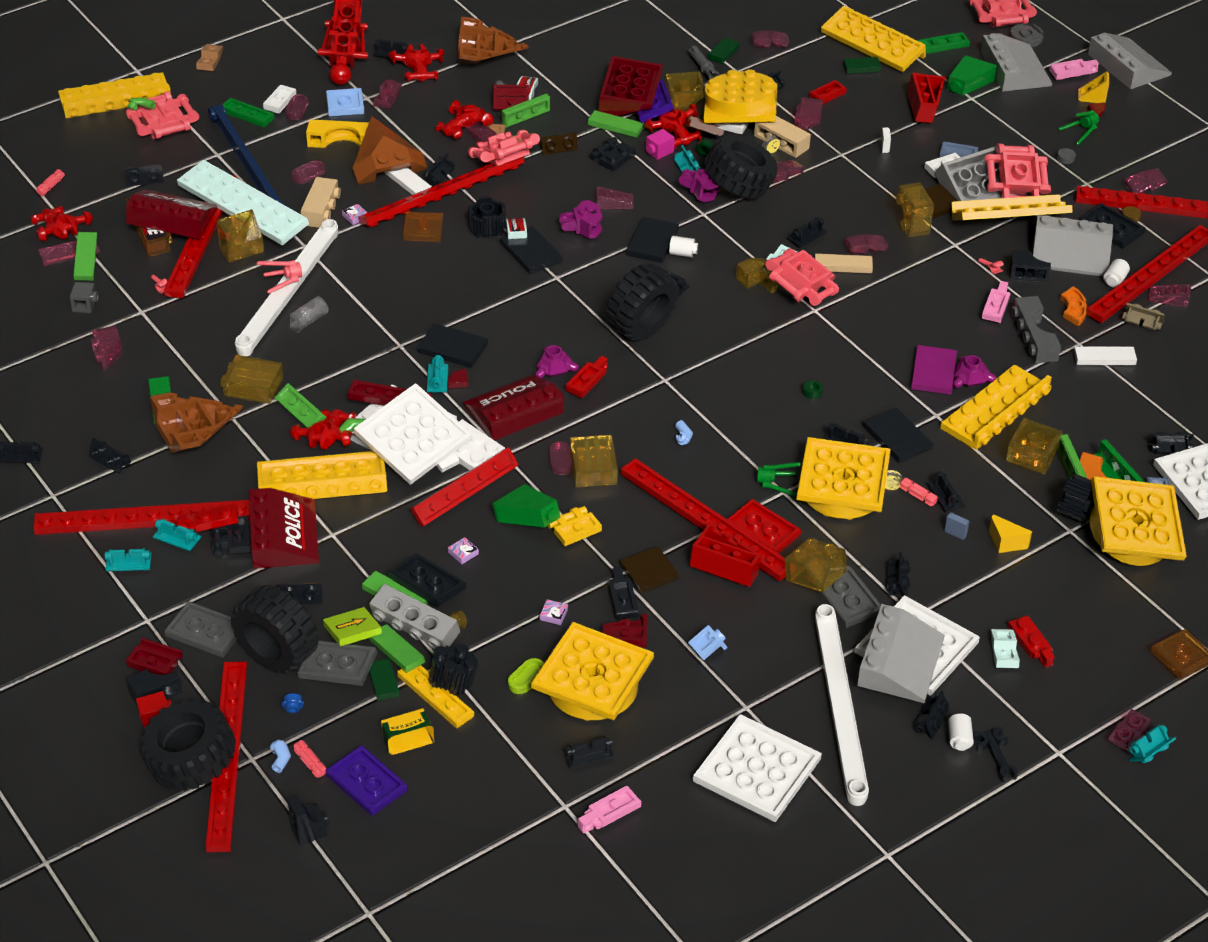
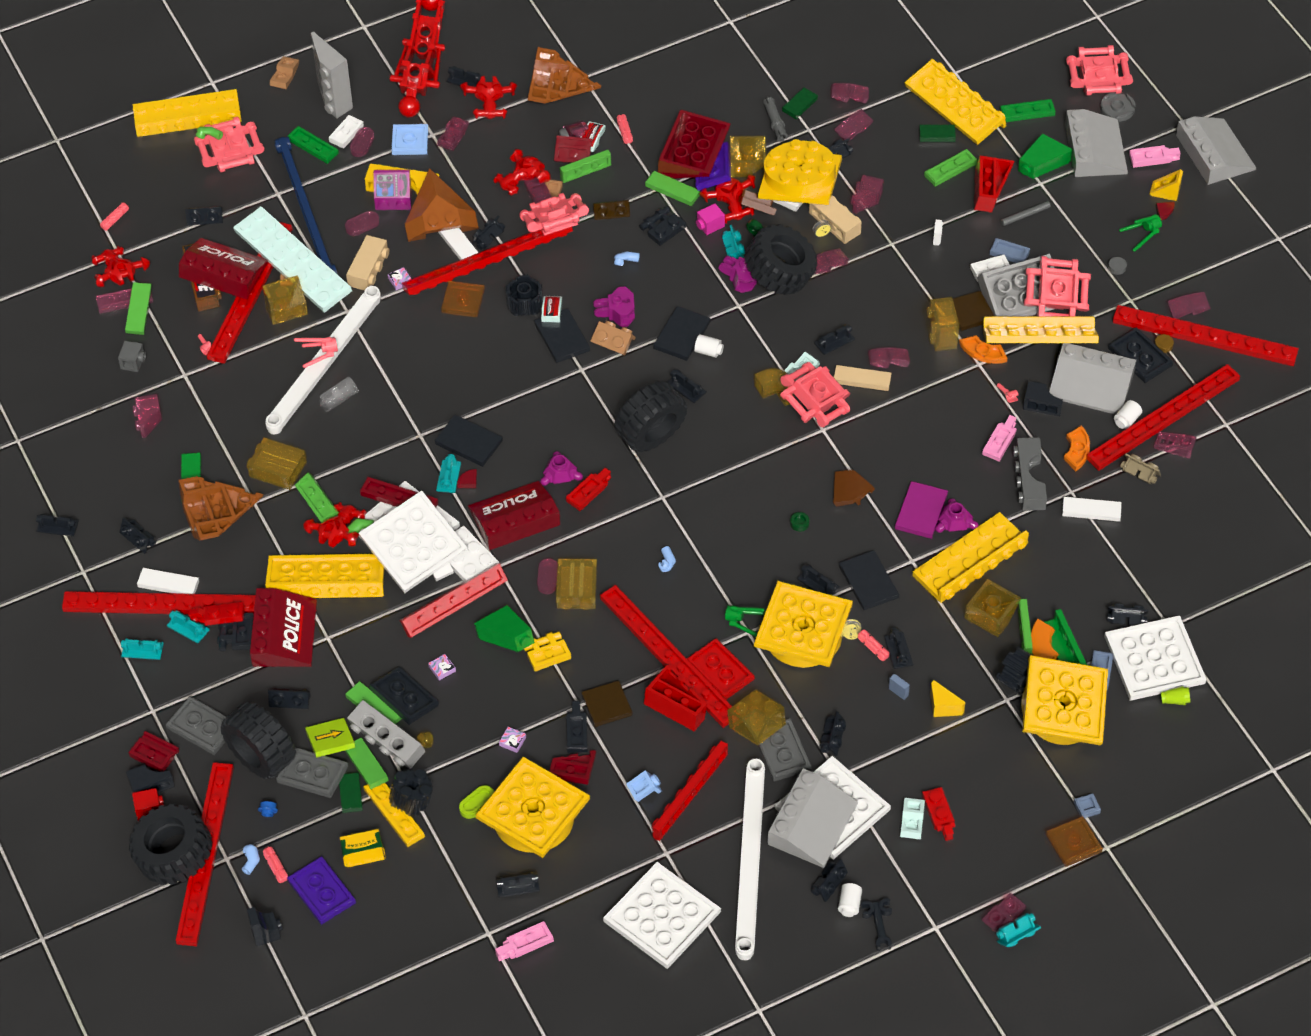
camera: 10 degrees right, 10 degrees up
(147, 496) = (167, 582): none -> white tile
(260, 48) = (332, 77): none -> light grey slope
(336, 138) = (392, 190): none -> magenta slope
(513, 79) = (576, 128): none -> clear pink slope
(557, 80) = (624, 129): none -> coral axle
(582, 180) = (628, 256): none -> light blue arm
(583, 246) = (612, 338): none -> medium nougat bracket
(614, 199) = (646, 275): clear pink slope -> none
(761, 639) = (693, 786): none -> red plate
(781, 61) = (853, 125): none -> clear pink slope
(828, 91) = (896, 167): red tile -> none
(857, 355) = (850, 488): none -> reddish brown slope
(882, 91) = (950, 167): none -> bright green tile
(956, 233) = (982, 351): none -> orange tile
(964, 121) = (1023, 214): none -> dark grey bar
(1185, 619) = (1087, 806): none -> sand blue tile

